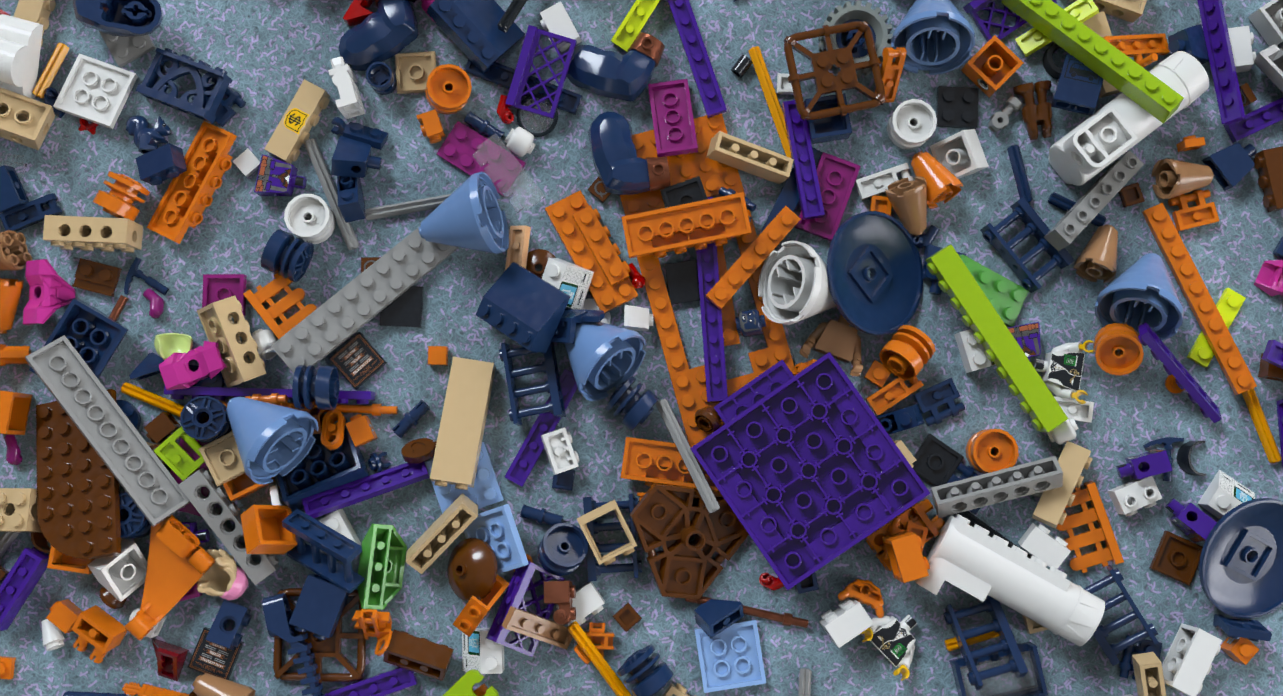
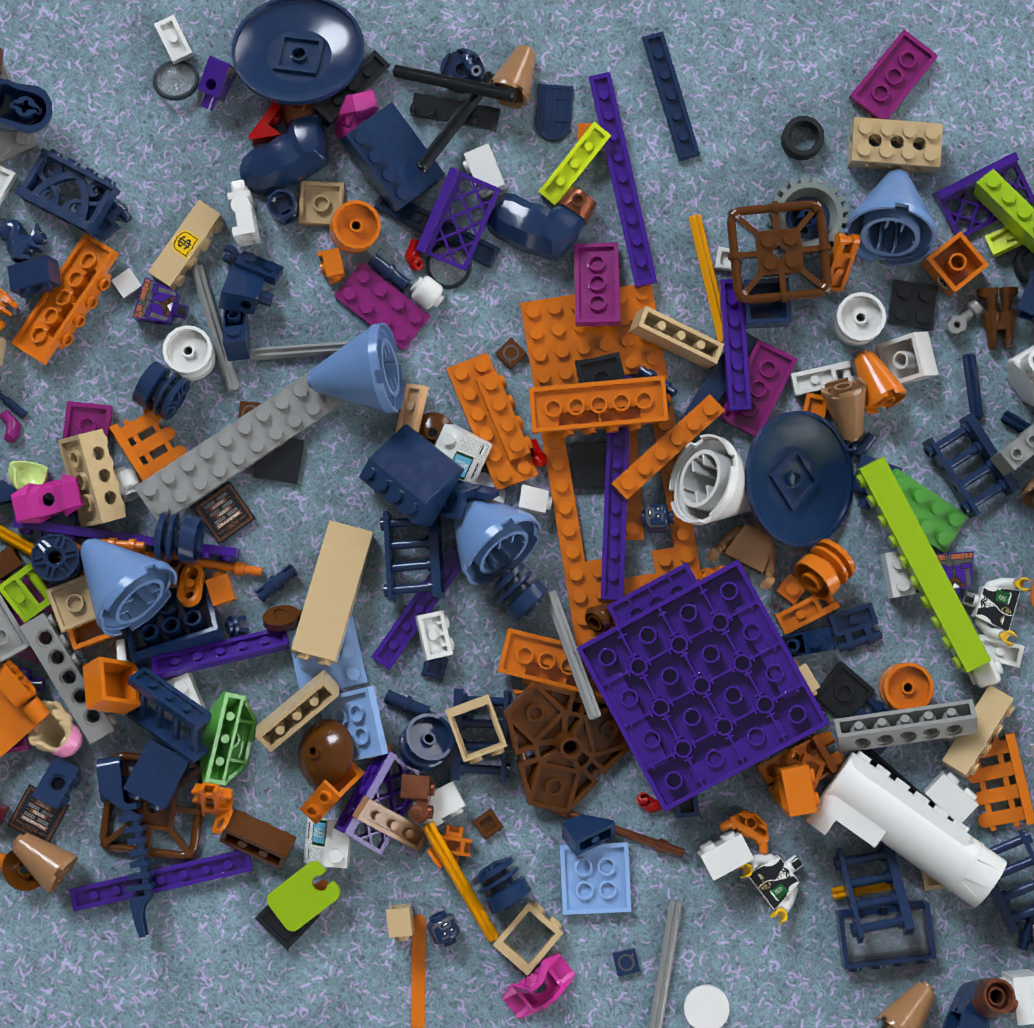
camera: 10 degrees right, 0 degrees up
(437, 355) = (312, 517): orange piece -> none
(507, 168) = (415, 329): clear windscreen -> none
(617, 158) = (531, 325): dark blue piece -> none
(741, 66) = (679, 234): black hinge -> none

